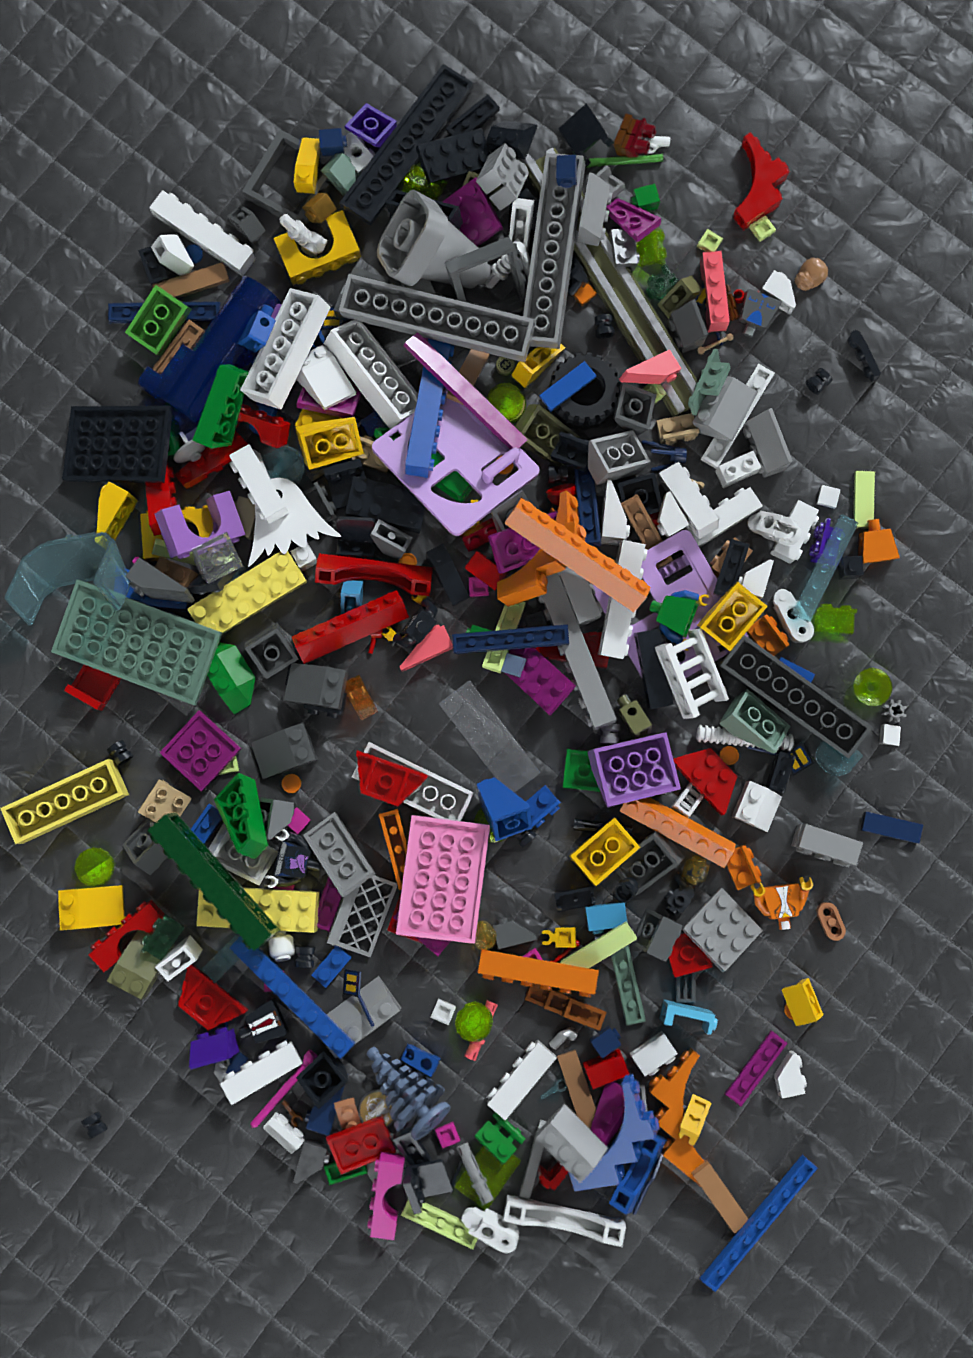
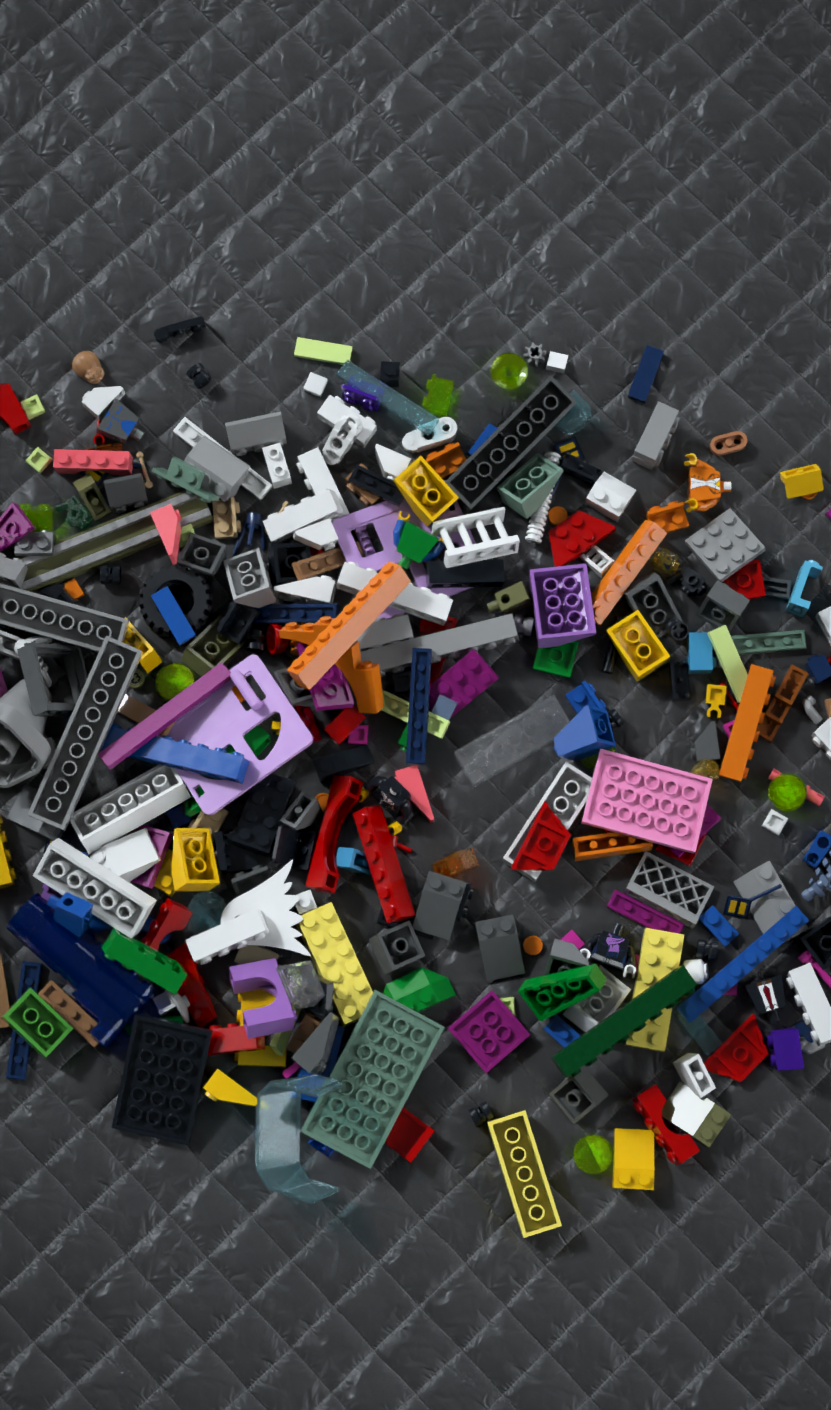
camera: 85 degrees left, 5 degrees down
(162, 938) = (671, 1087): clear green bracket -> none
(163, 800) = (538, 1074): tan hinge -> none
(339, 854) = (610, 902): light grey plate -> none
(877, 544) = (370, 345): orange torso -> none

